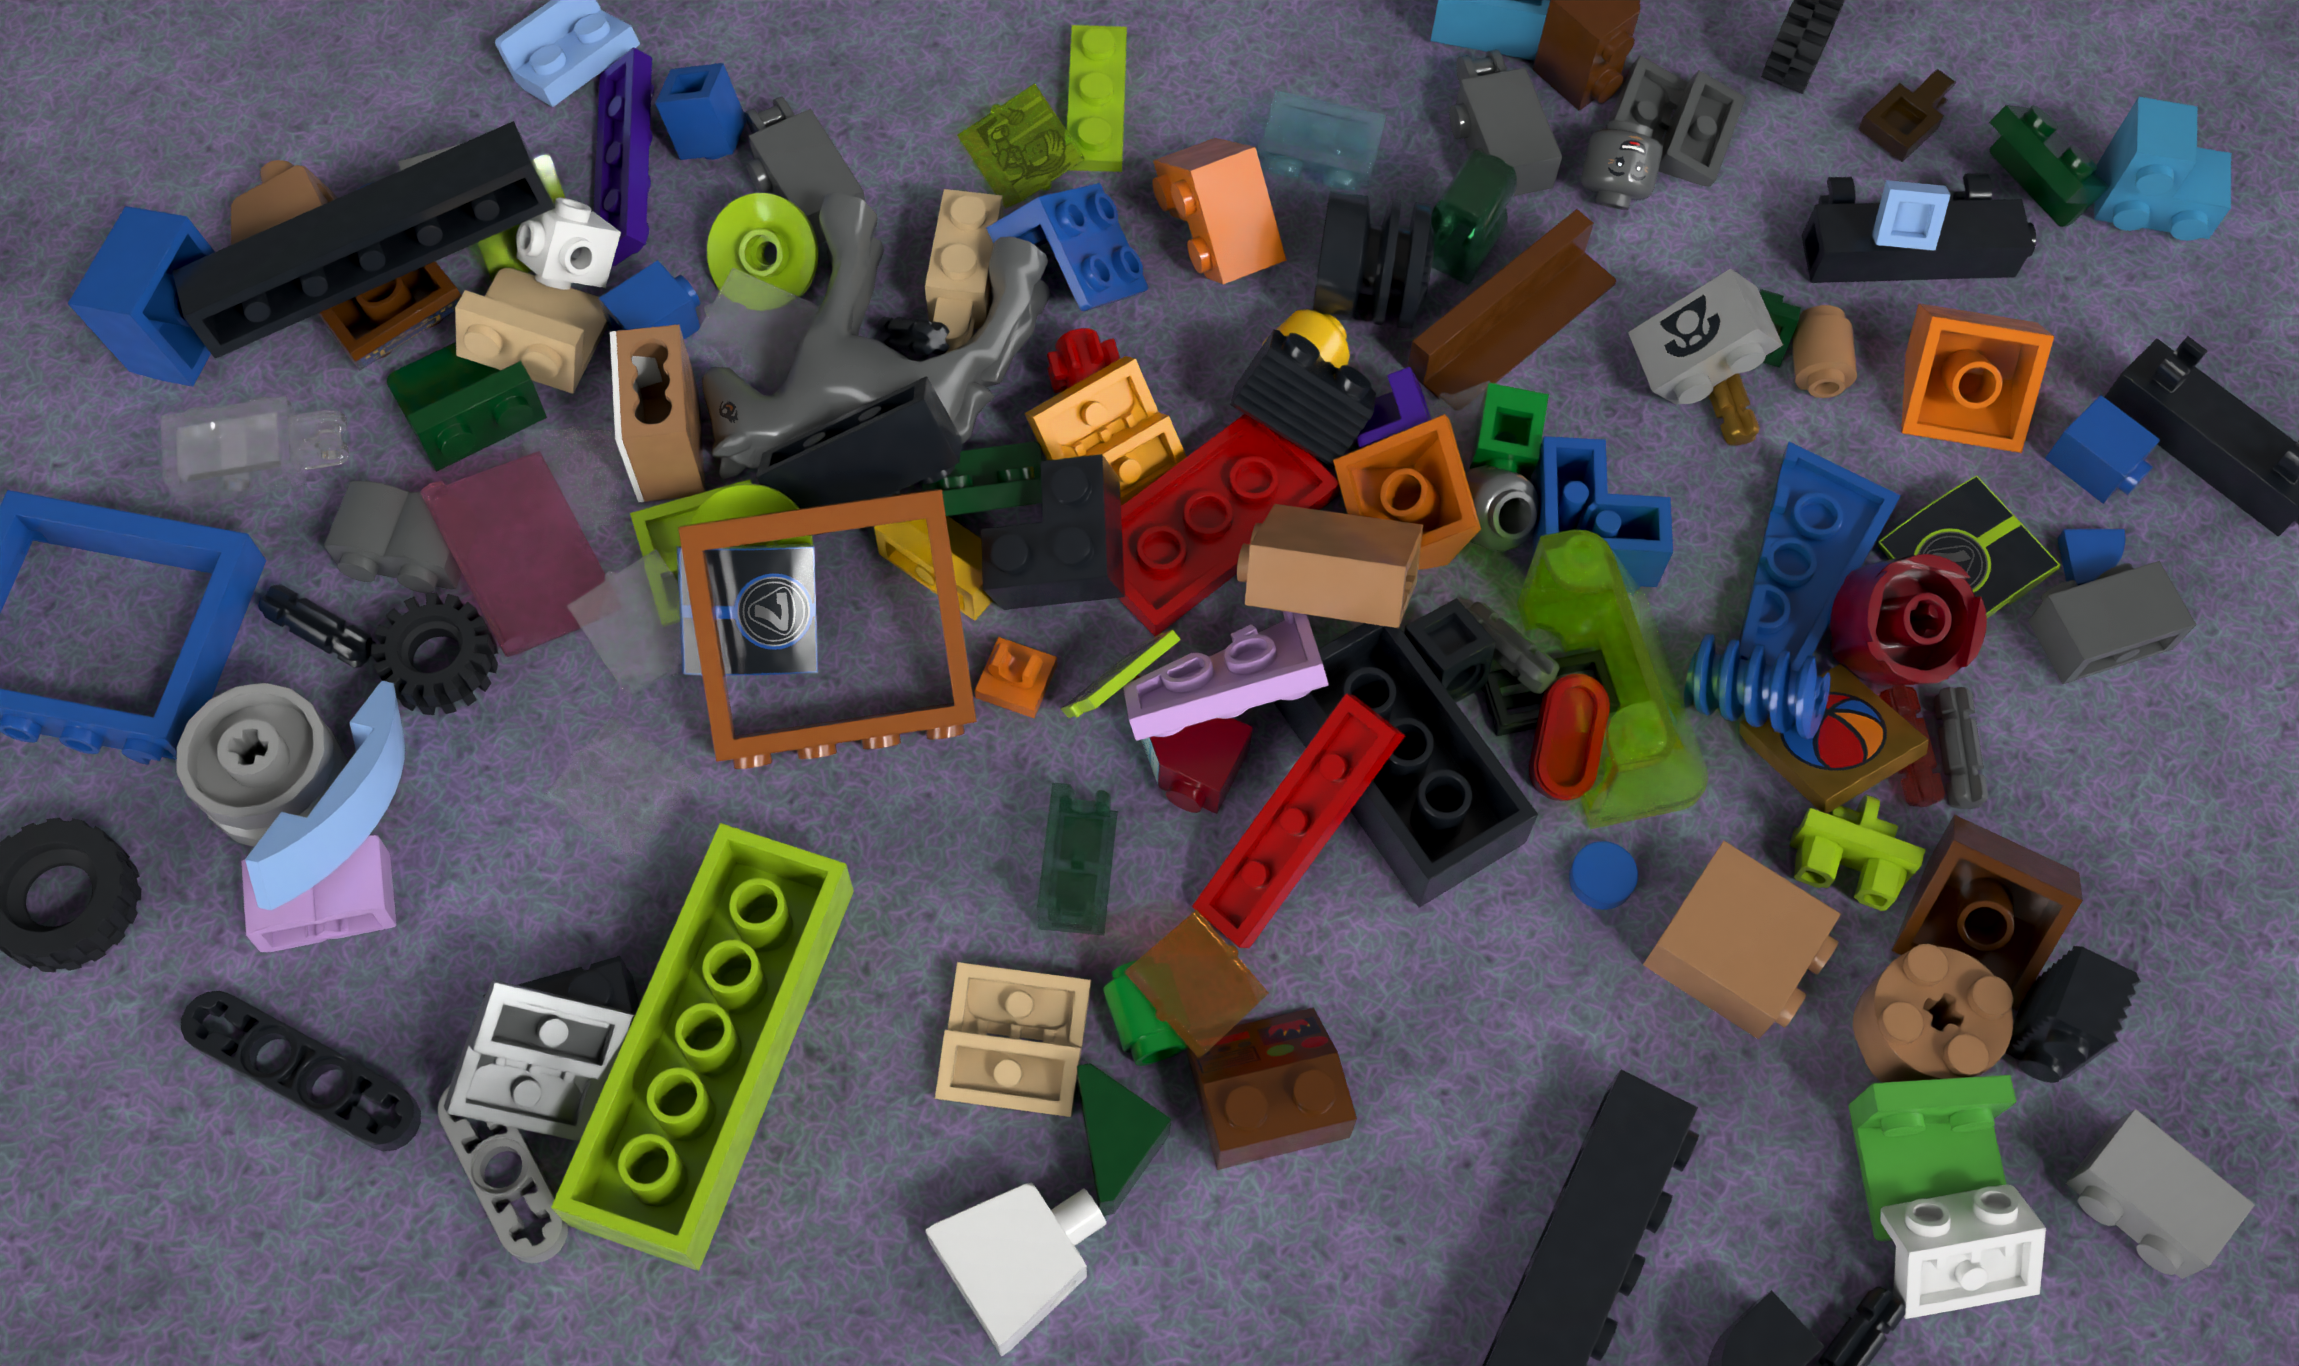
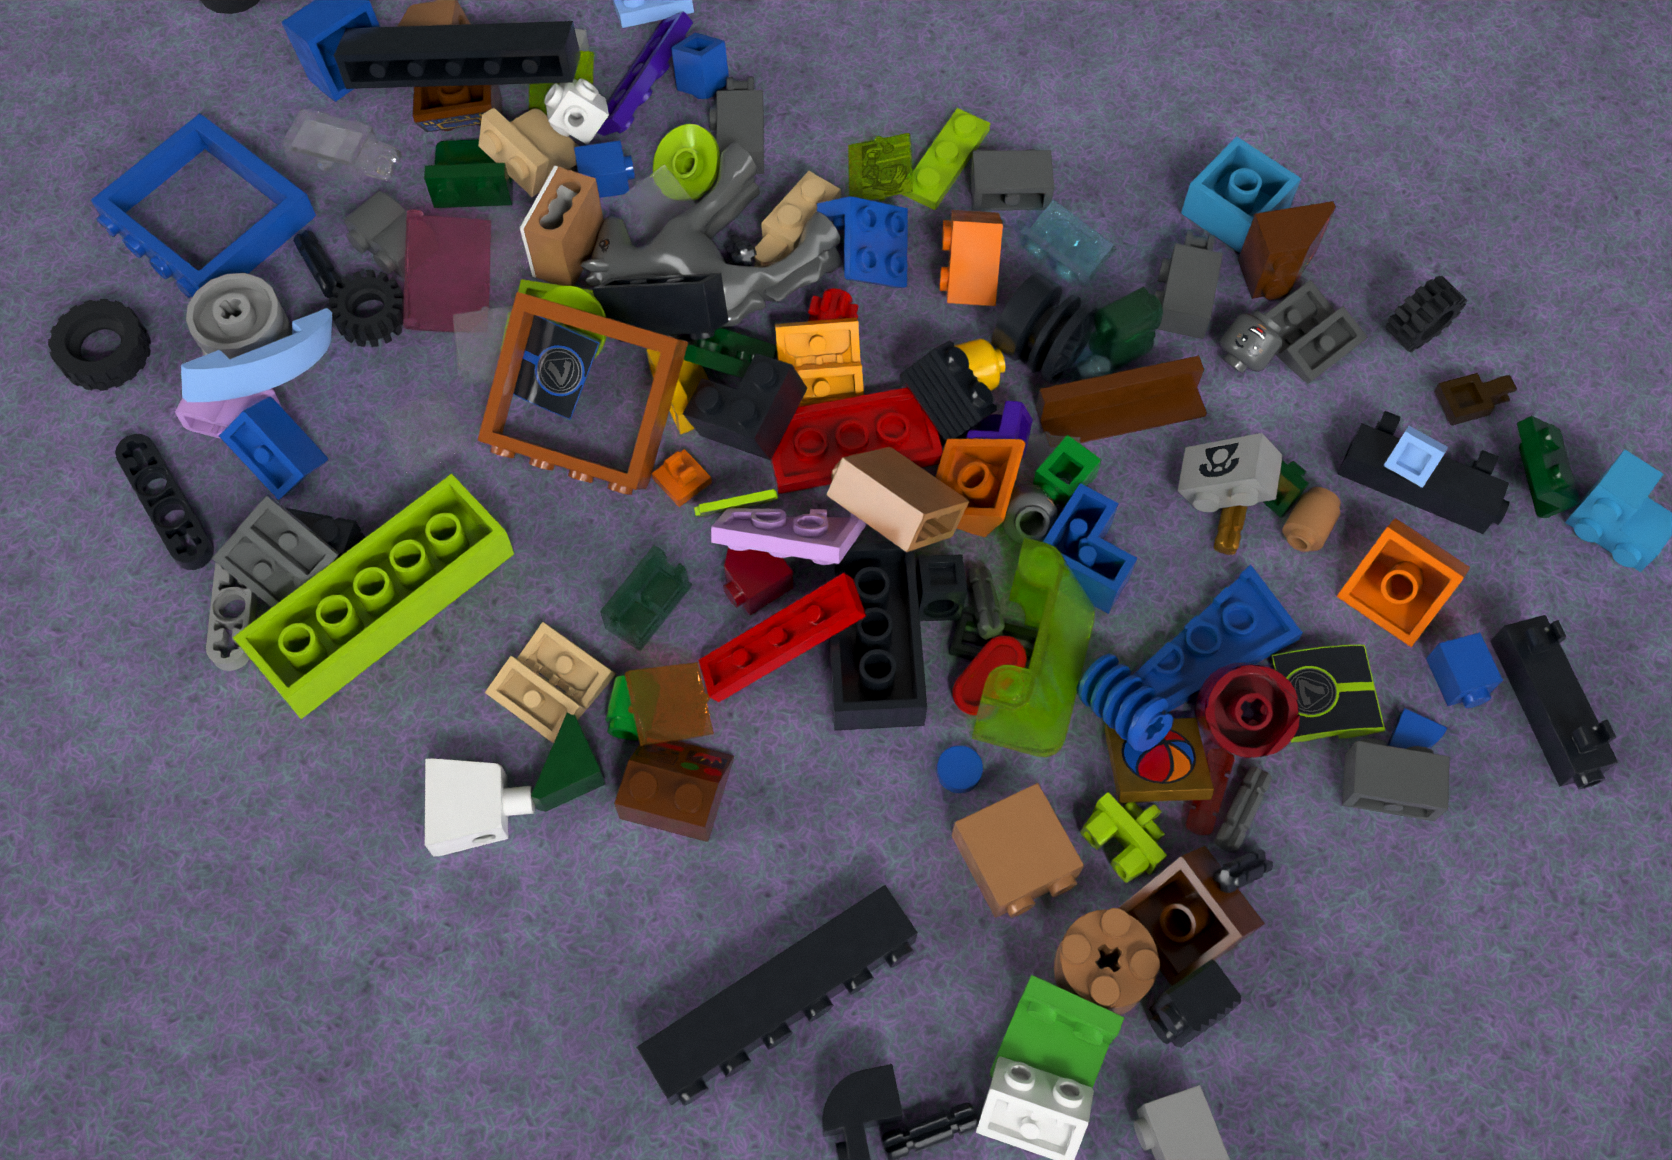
camera: 30 degrees right, 0 degrees up
(425, 914) = (273, 446): none -> blue panel
(1202, 89) = (1011, 180): none -> dark grey brick
(1455, 283) = (1095, 366): none -> clear light blue hinge
(2017, 822) = (1242, 871): none -> black axle

